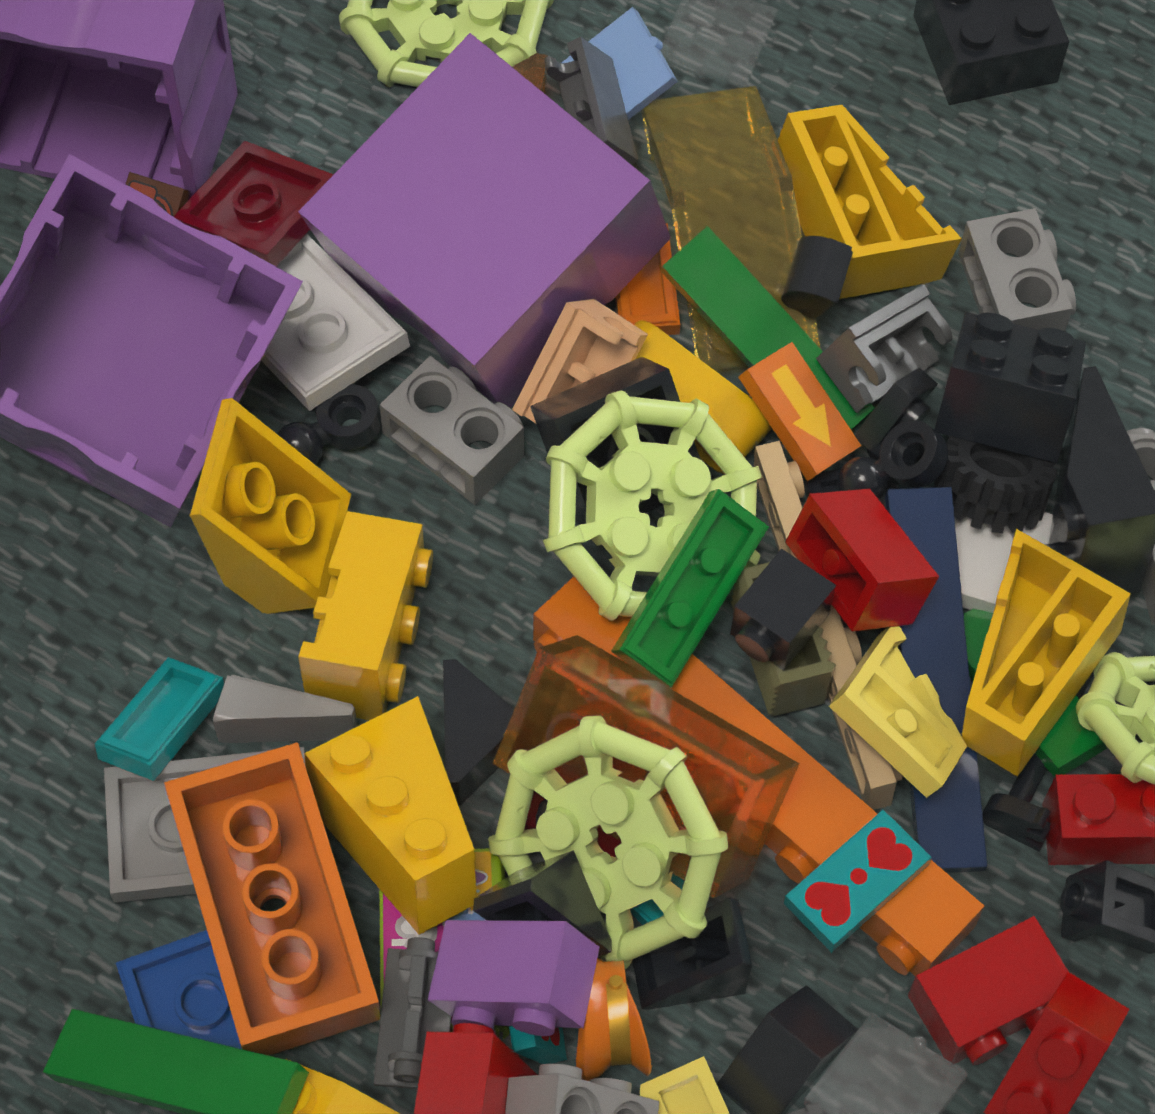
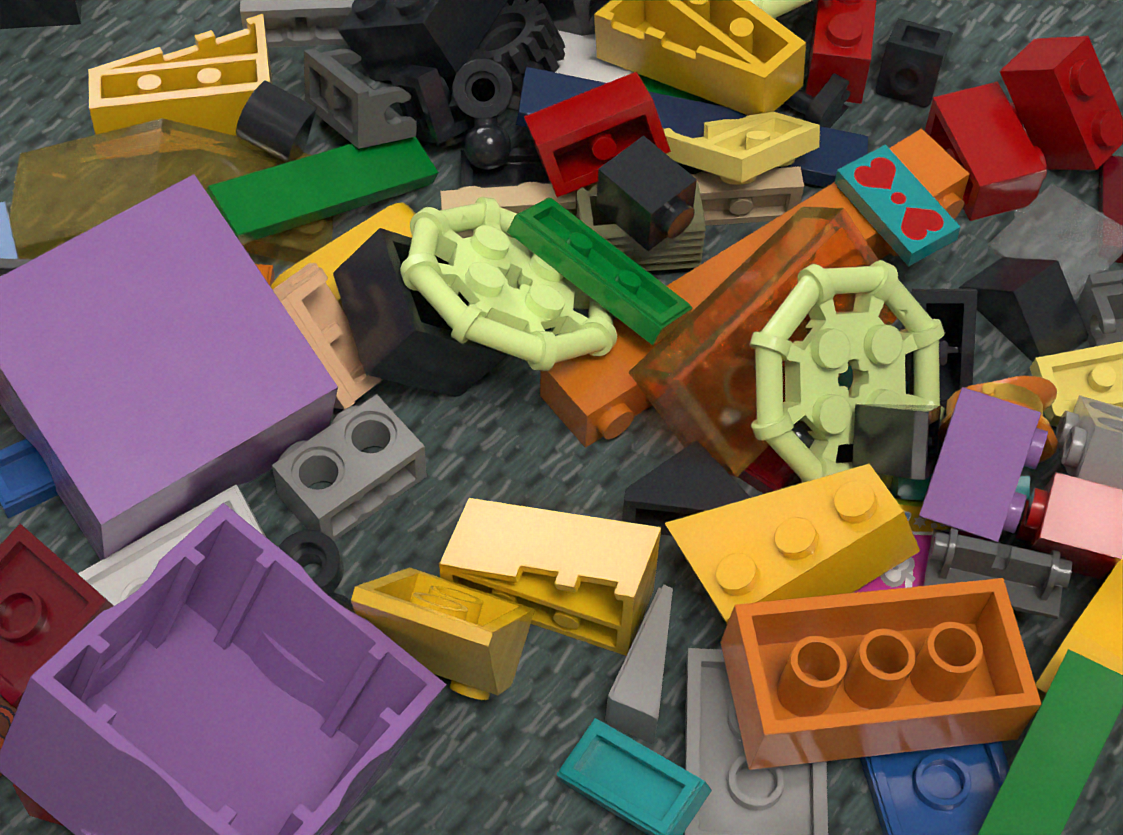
camera: 80 degrees left, 5 degrees down
(799, 411) = (408, 172): orange tile -> none

